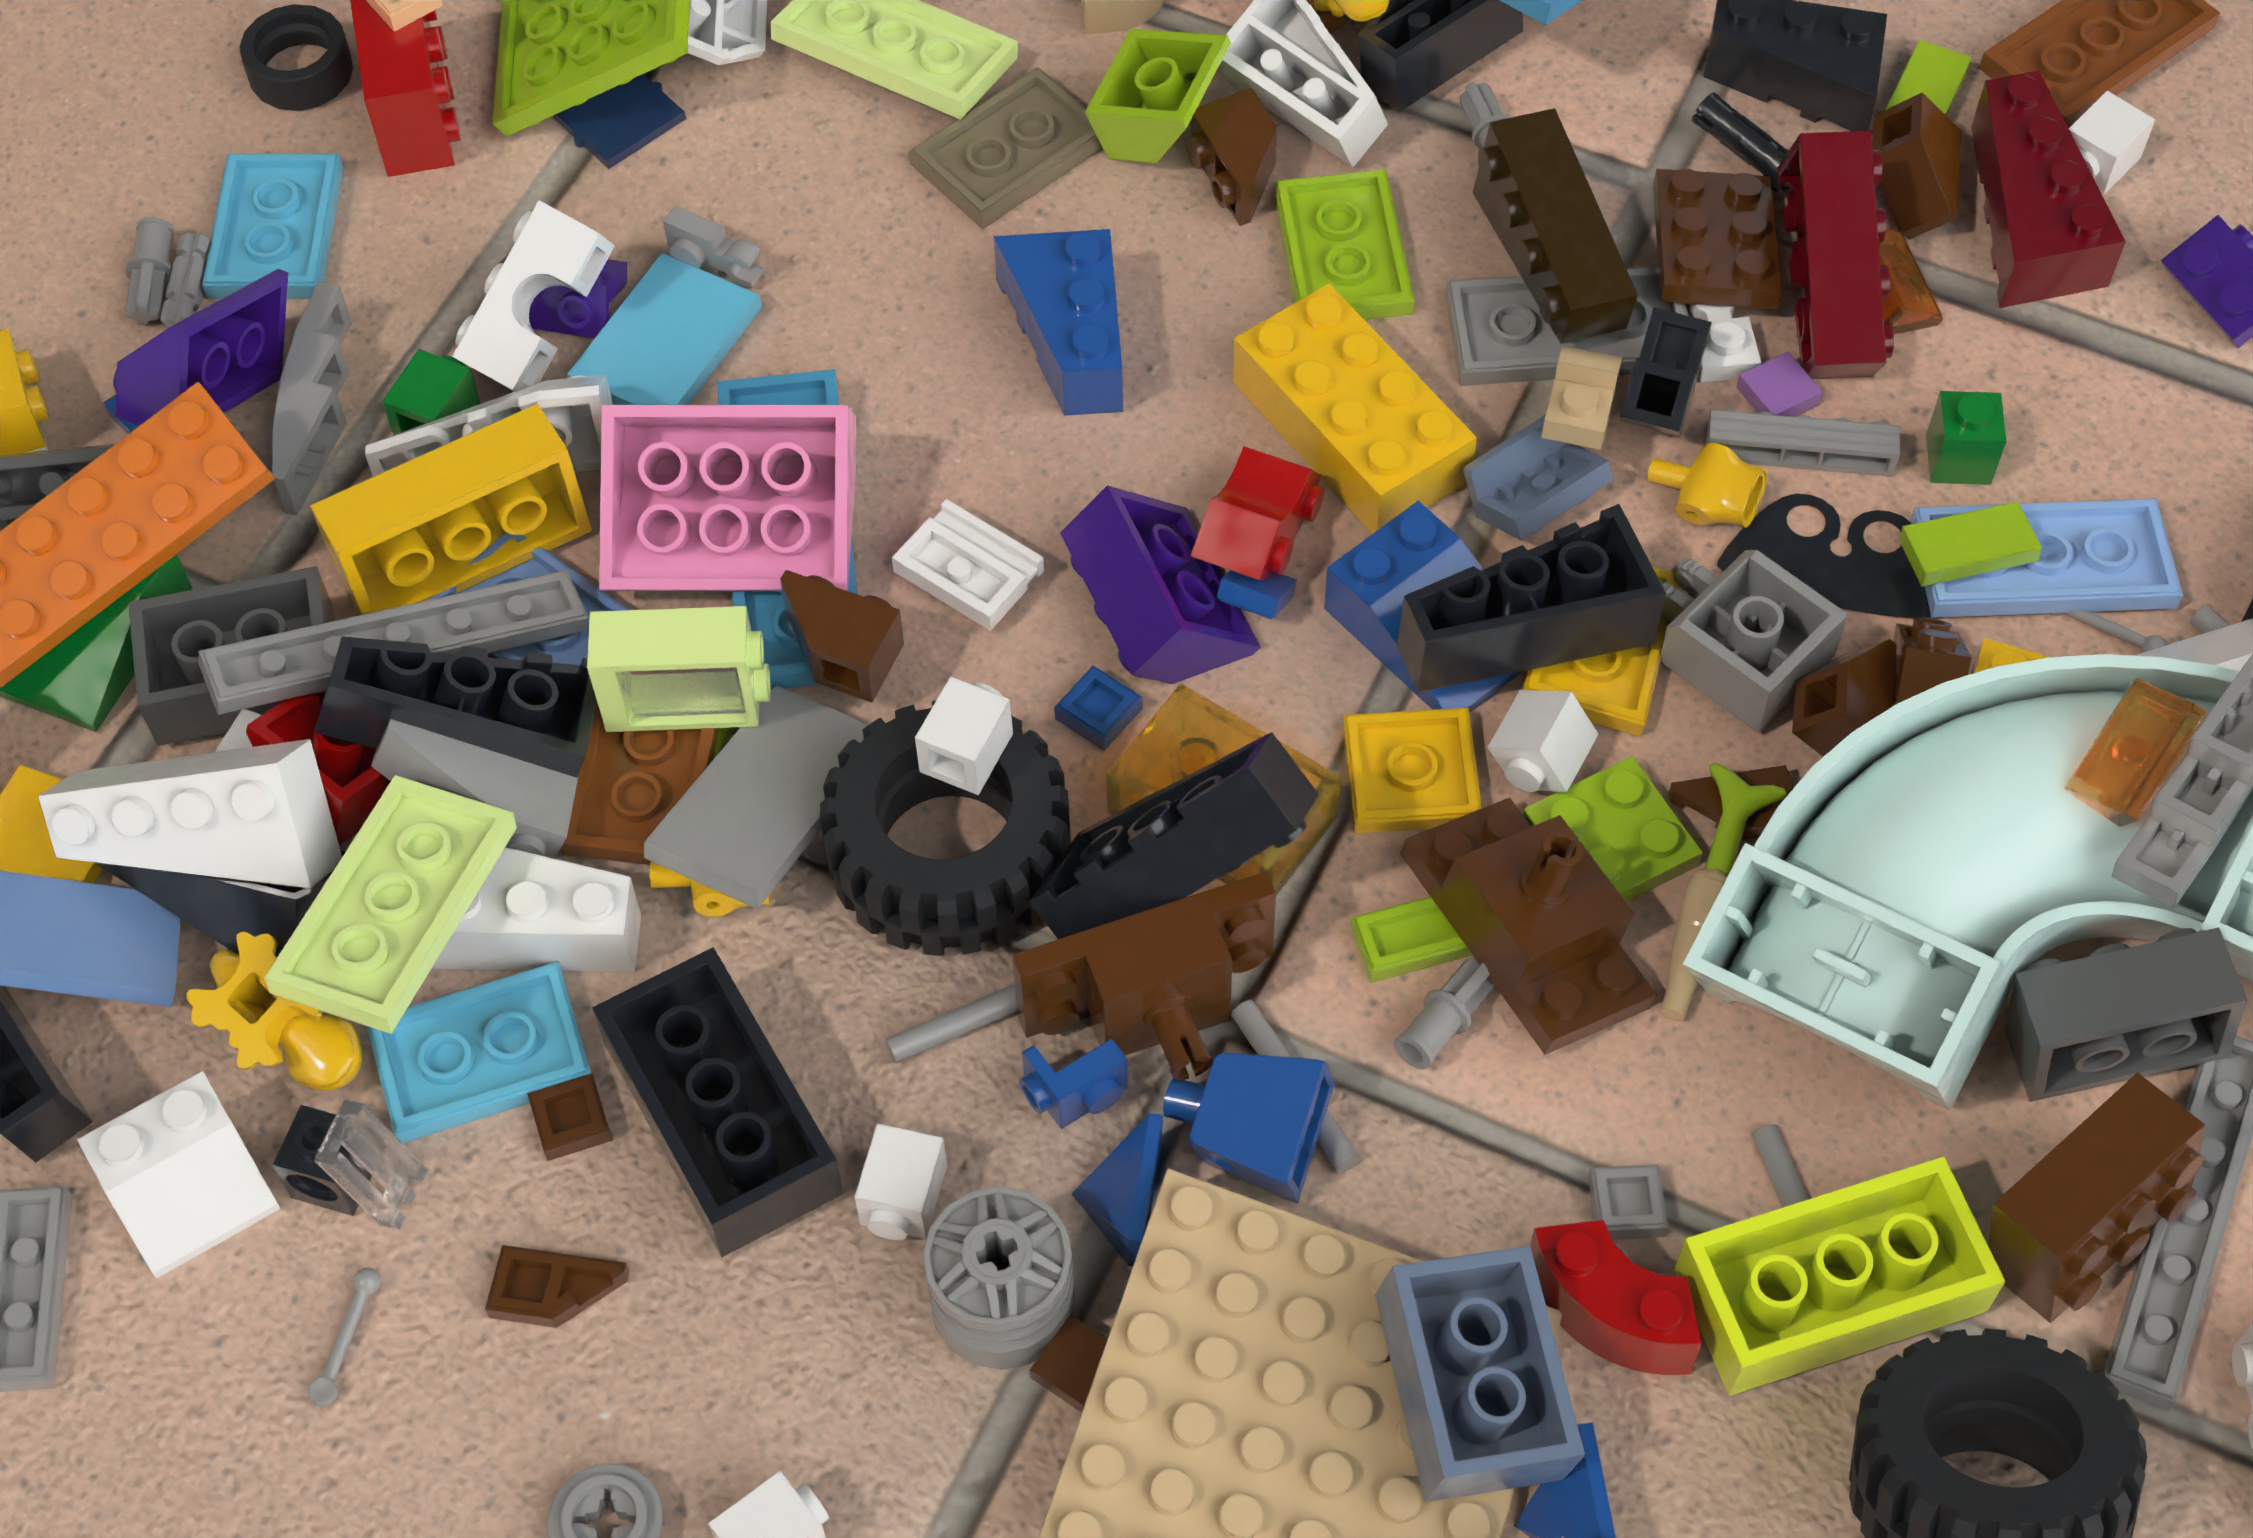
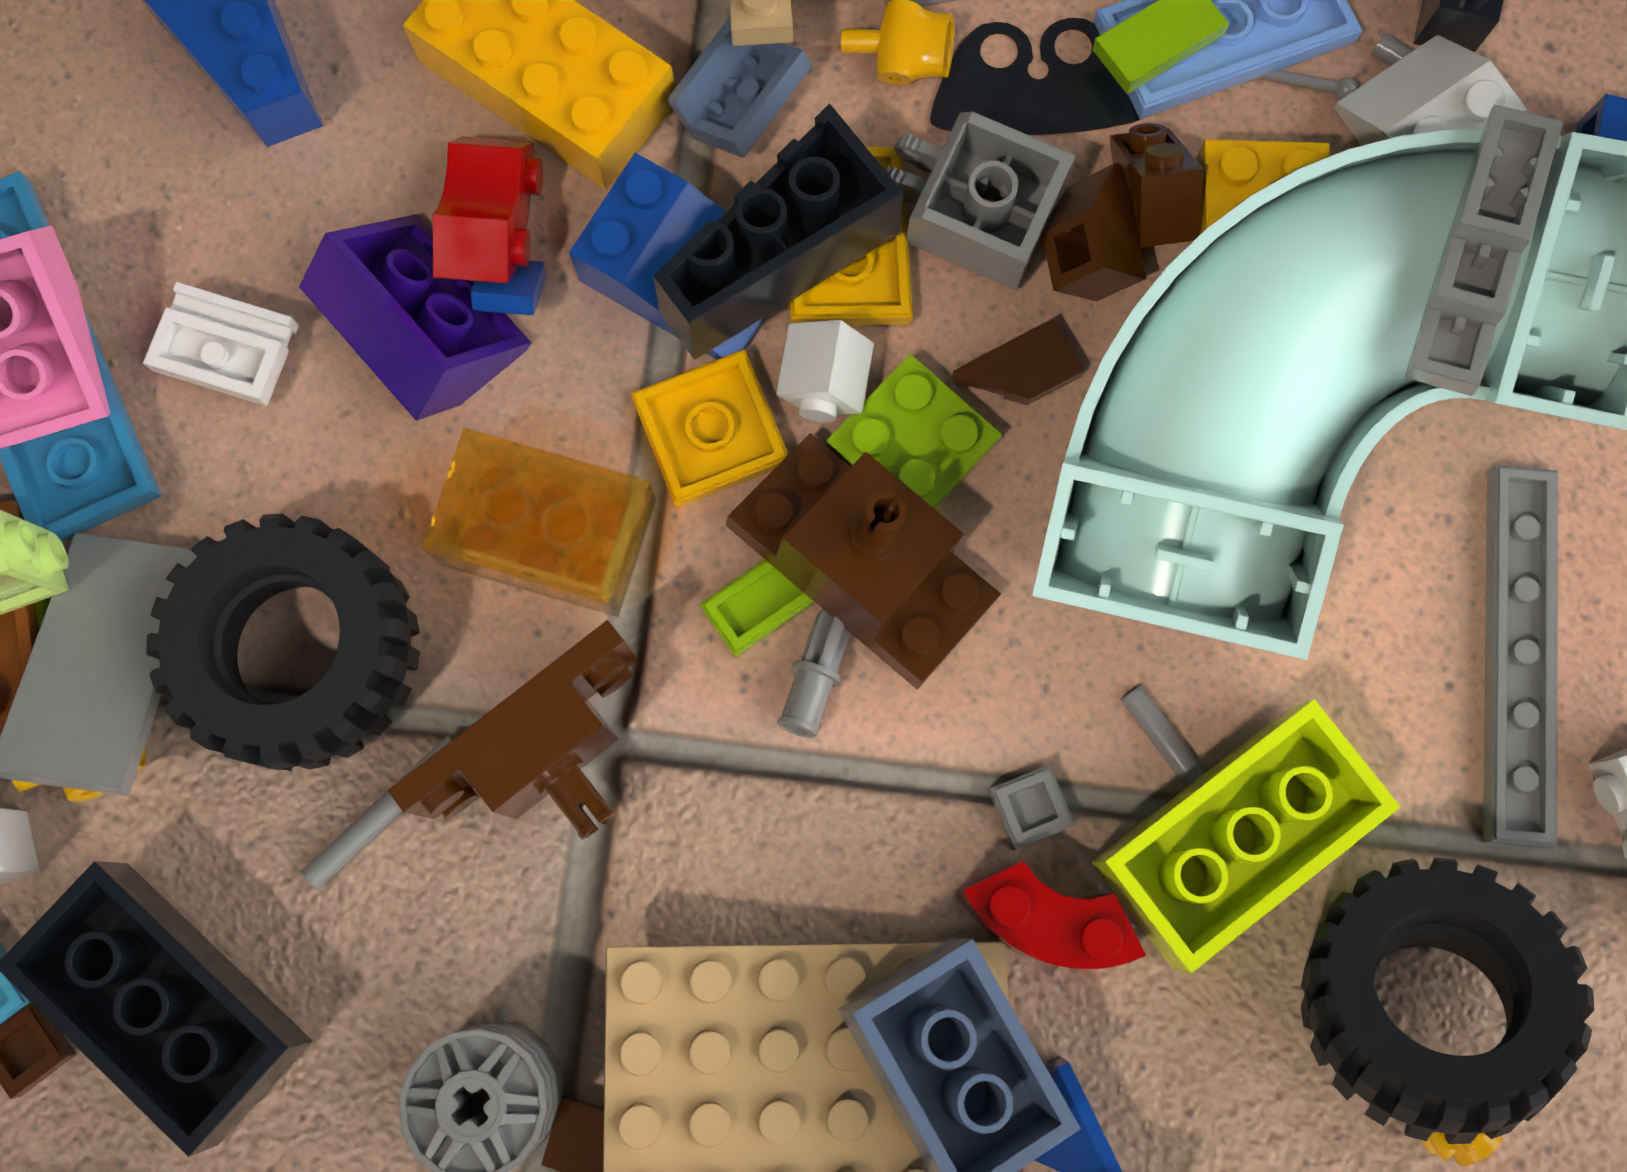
camera: 20 degrees left, 20 degrees up
(842, 635) = (115, 475): reddish brown slope -> none
(900, 1183) = (361, 1024): white brick -> none
(964, 734) = (263, 568): white brick -> none
(1082, 1087) = (507, 862): blue bracket -> none
(1098, 708) = (396, 456): blue tile -> none
(1123, 1187) = (573, 955): blue slope -> none
(1177, 839) = (509, 618): black wedge -> none
(1256, 1117) = (672, 852): blue torso -> none
(1267, 1043) = (698, 790): light grey bar -> none
(1703, 887) = (1021, 473): piece -> none
(2096, 1198) = (1459, 689): reddish brown brick -> none
(2124, 1012) = (1439, 487): dark grey brick -> none
(2134, 752) = (1405, 247): clear orange slope -> none

